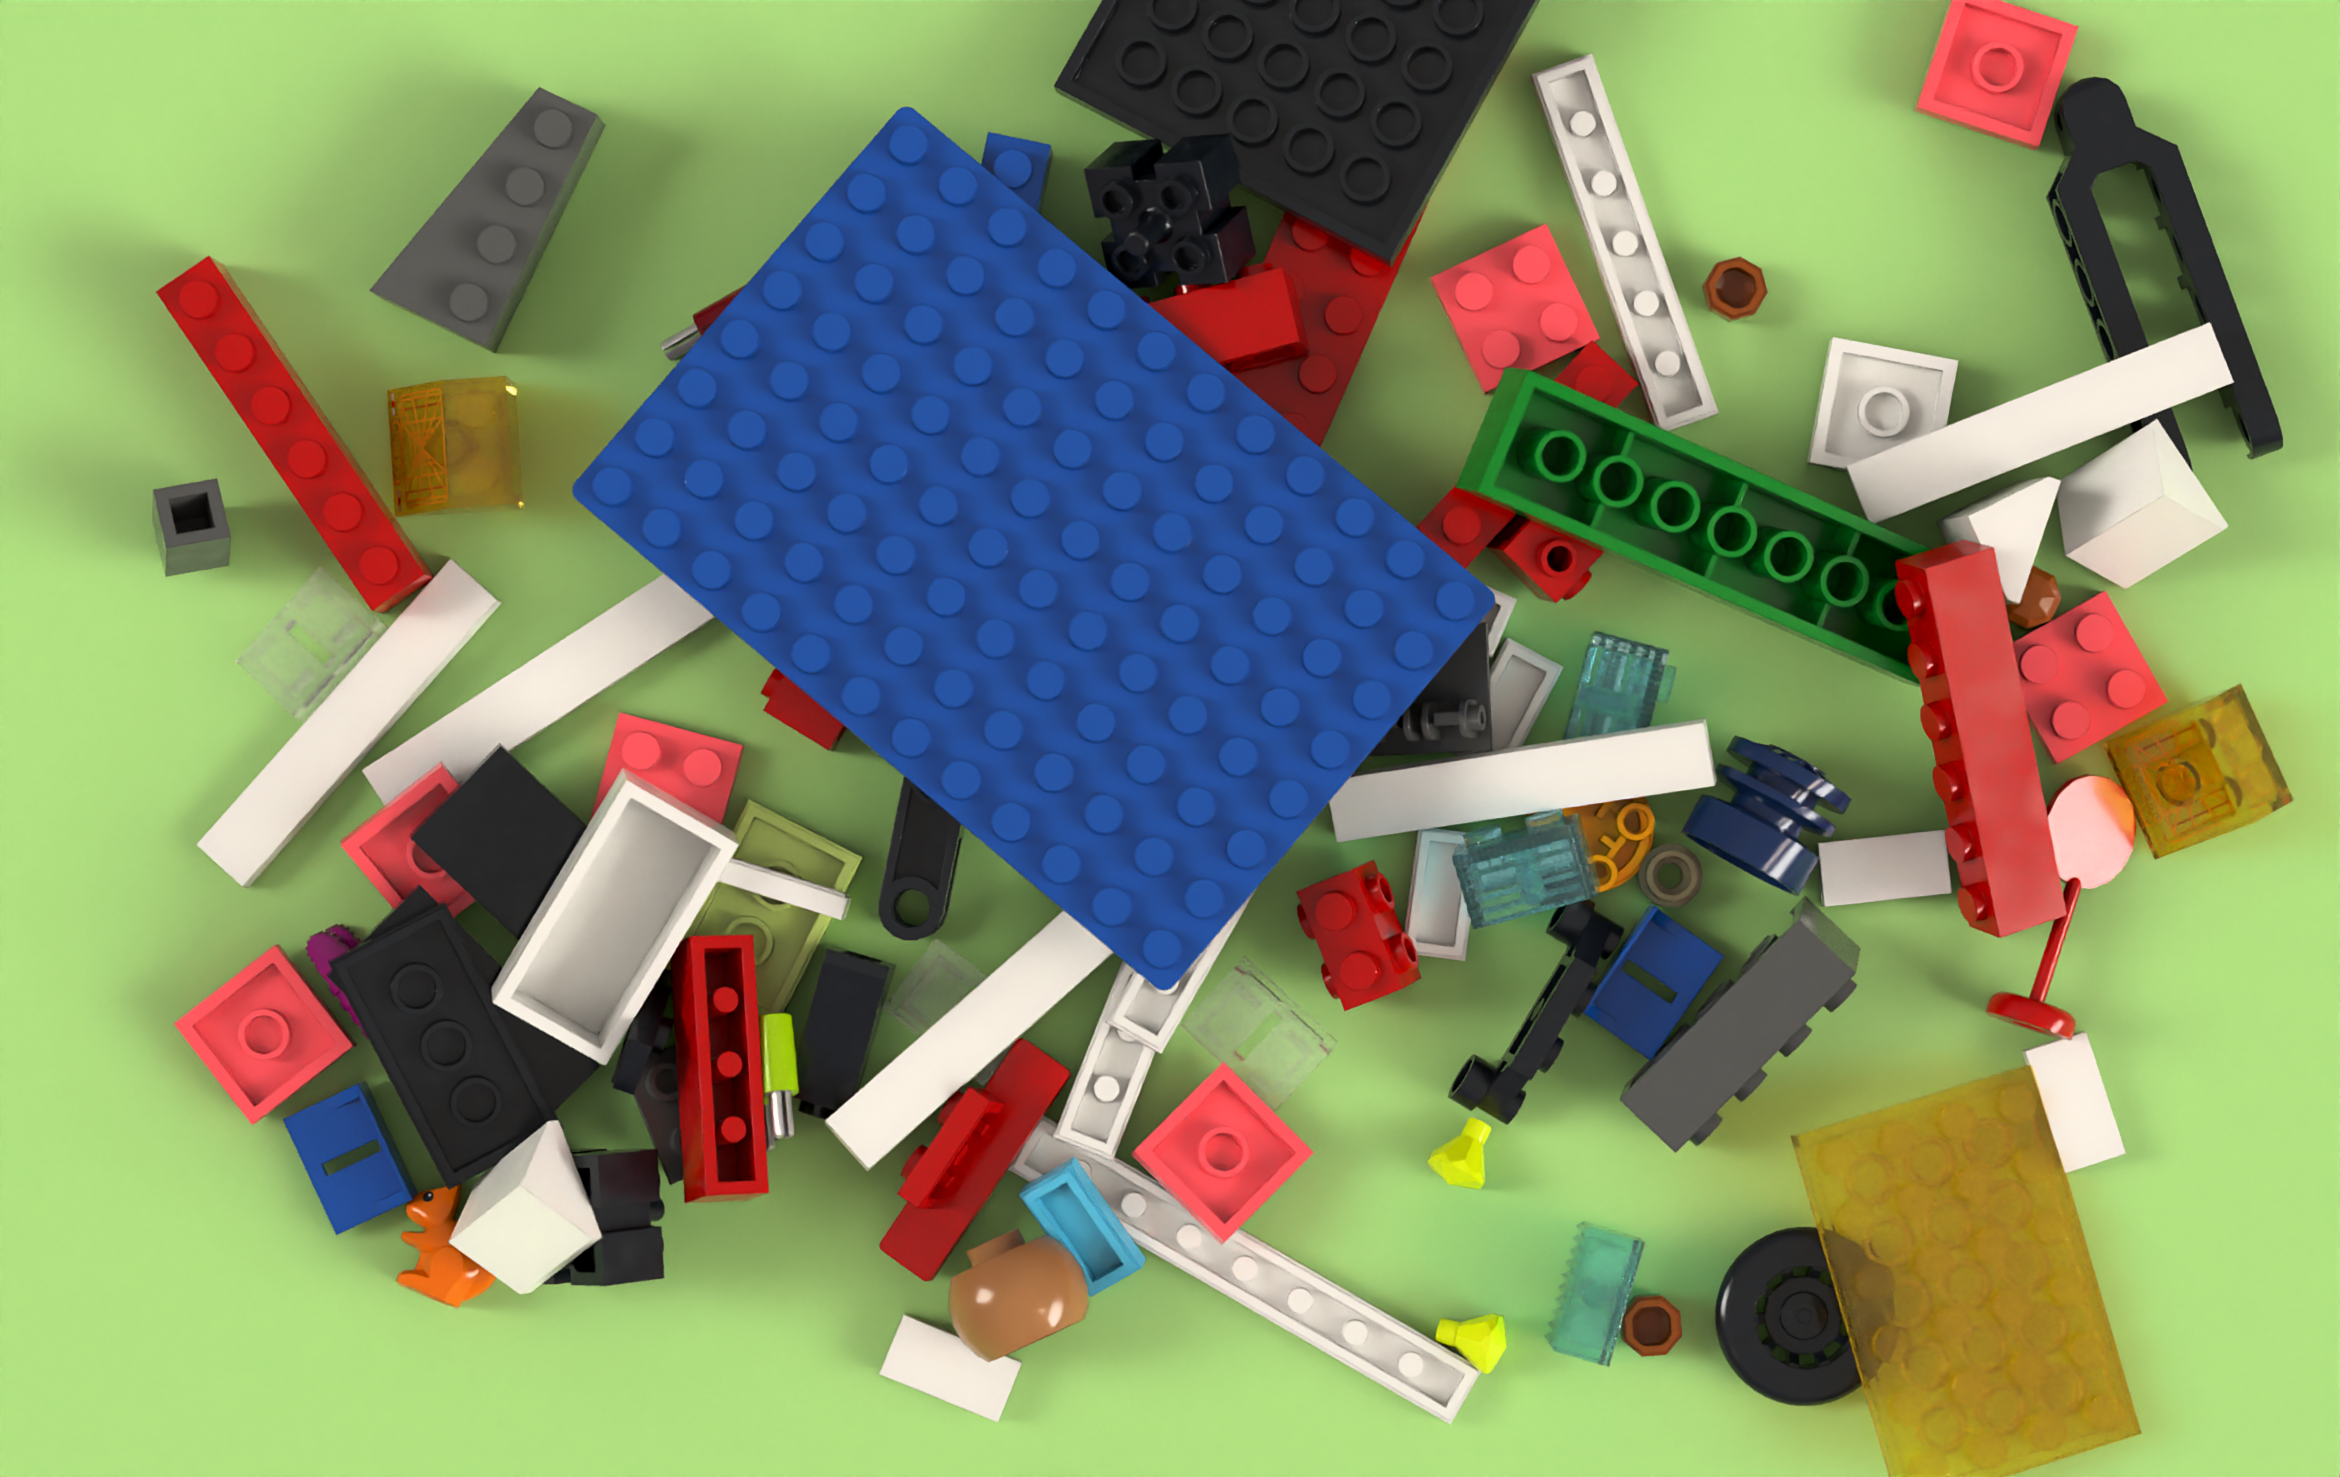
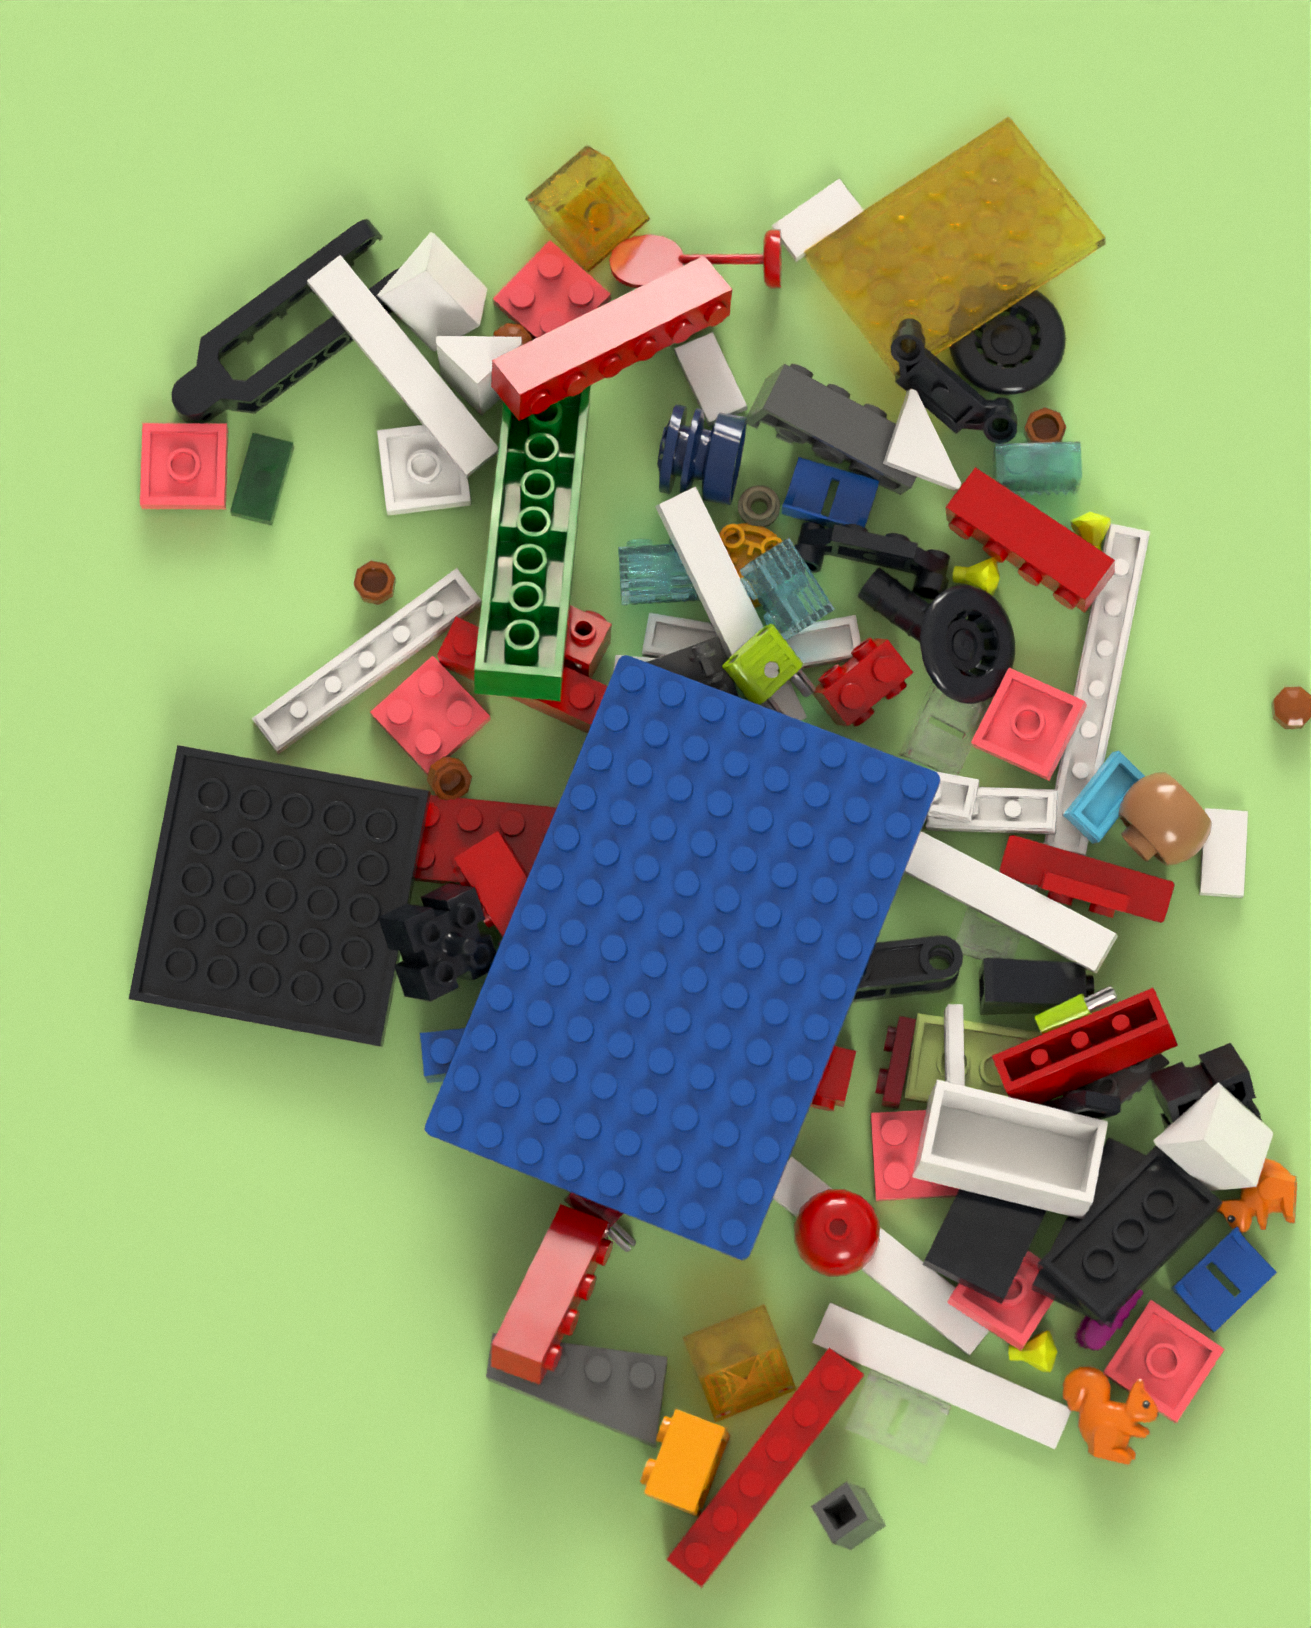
camera: 105 degrees left, 10 degrees down
(202, 927) = (1104, 1422): none -> orange animal
(330, 324) = (685, 1462): none -> light orange slope
(333, 868) = (1038, 1352): none -> neon yellow rock
(587, 640) = (836, 1232): none -> red cylinder
(621, 211) = (551, 1294): none -> brick
(777, 789) = (891, 1080): none -> dark red plate
(1369, 1088) = (957, 645): none -> black wheel
(1411, 305) = (449, 778): none -> dark orange tile
(1420, 799) = (765, 666): none -> lime piece
(1453, 1031) = (895, 602): none -> black axle
(1489, 1244) = (1029, 540): none -> red brick
(1674, 1128) = (917, 447): none -> white tile
(1748, 1198) = (945, 392): none -> black plate
(1942, 176) = (262, 479): none -> clear green plate

